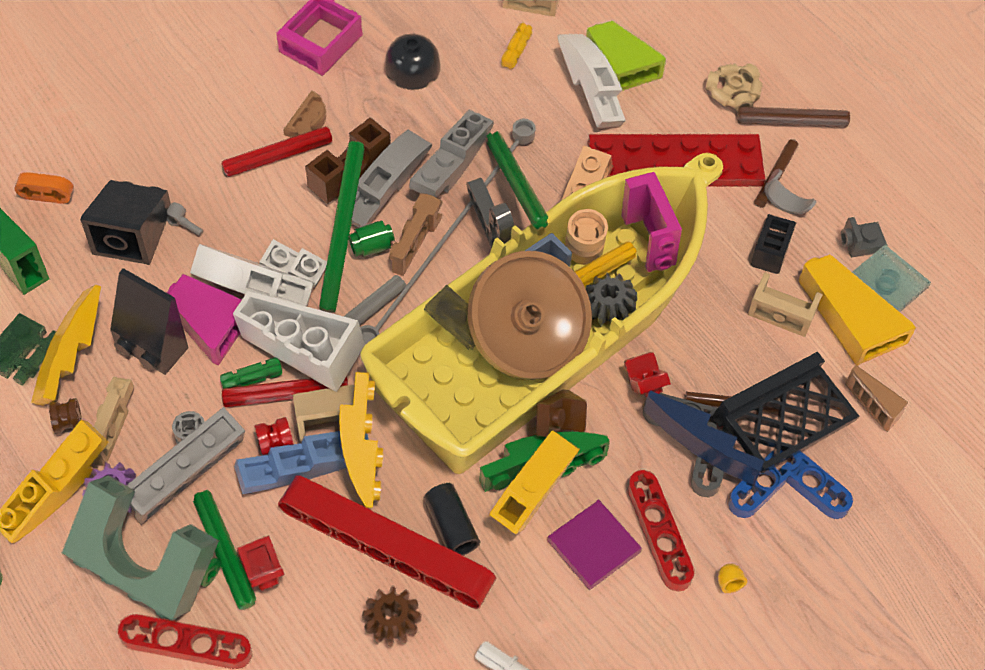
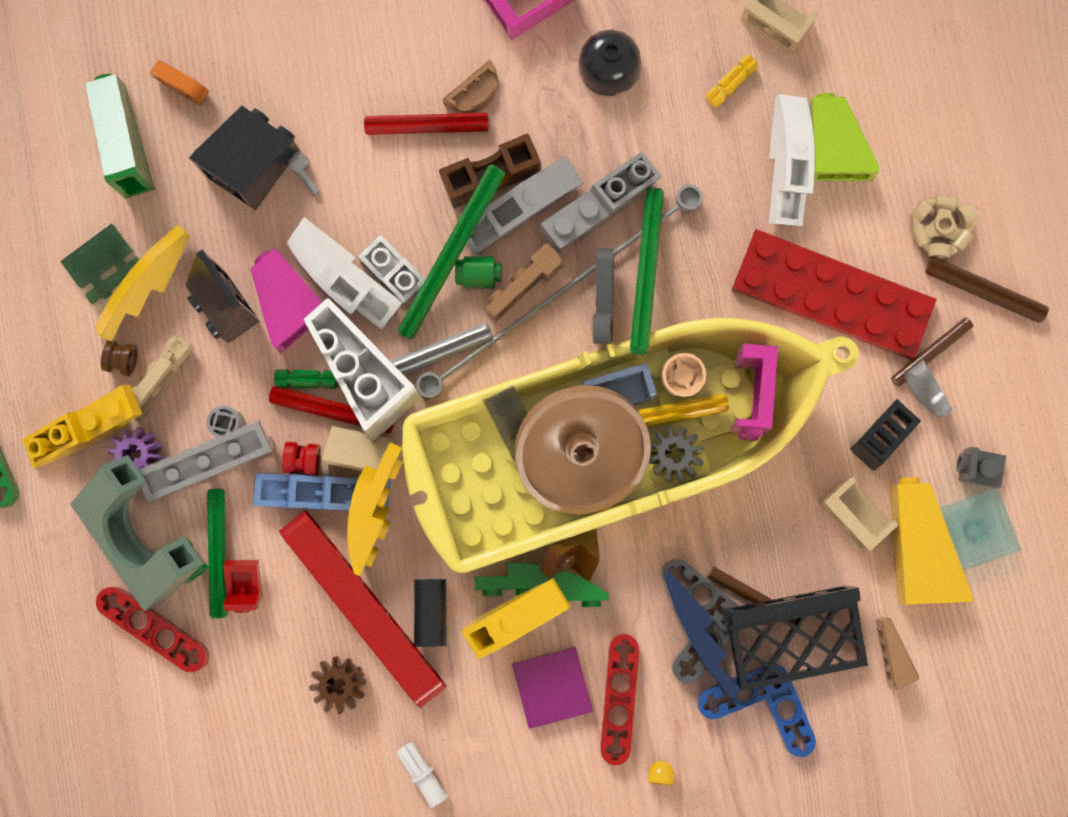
camera: 30 degrees right, 25 degrees up
(590, 167) = (722, 293): light nougat brick -> none
(645, 374) = (679, 539): red bracket -> none

